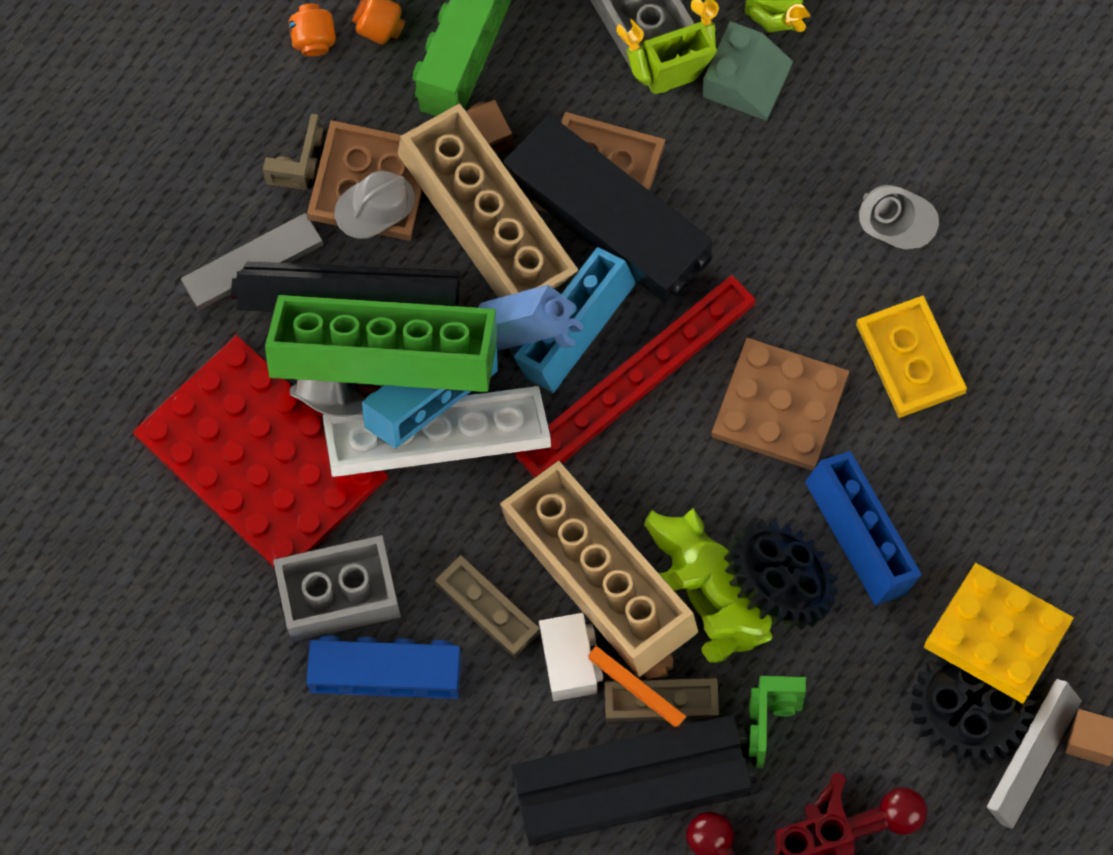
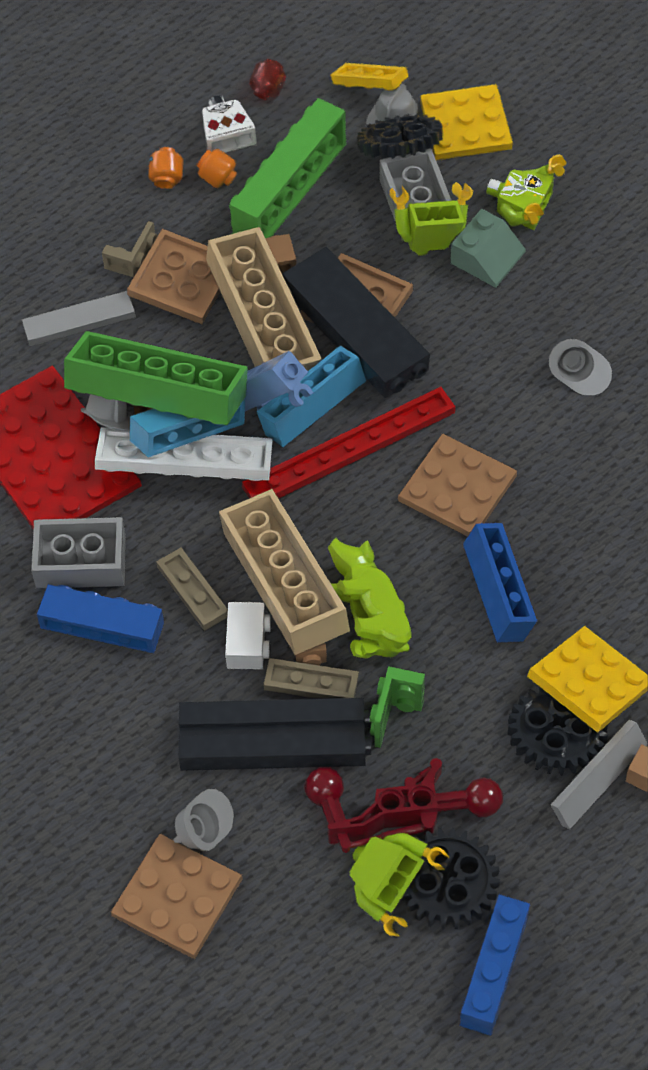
camera: 10 degrees right, 10 degrees down
(261, 283) = (71, 327): black brick -> none
(374, 204) = (180, 290): light grey piece -> none
(636, 686) = (291, 661): orange tile -> none
(781, 574) = (426, 602): black gear -> none
(911, 356) = (568, 469): yellow plate -> none

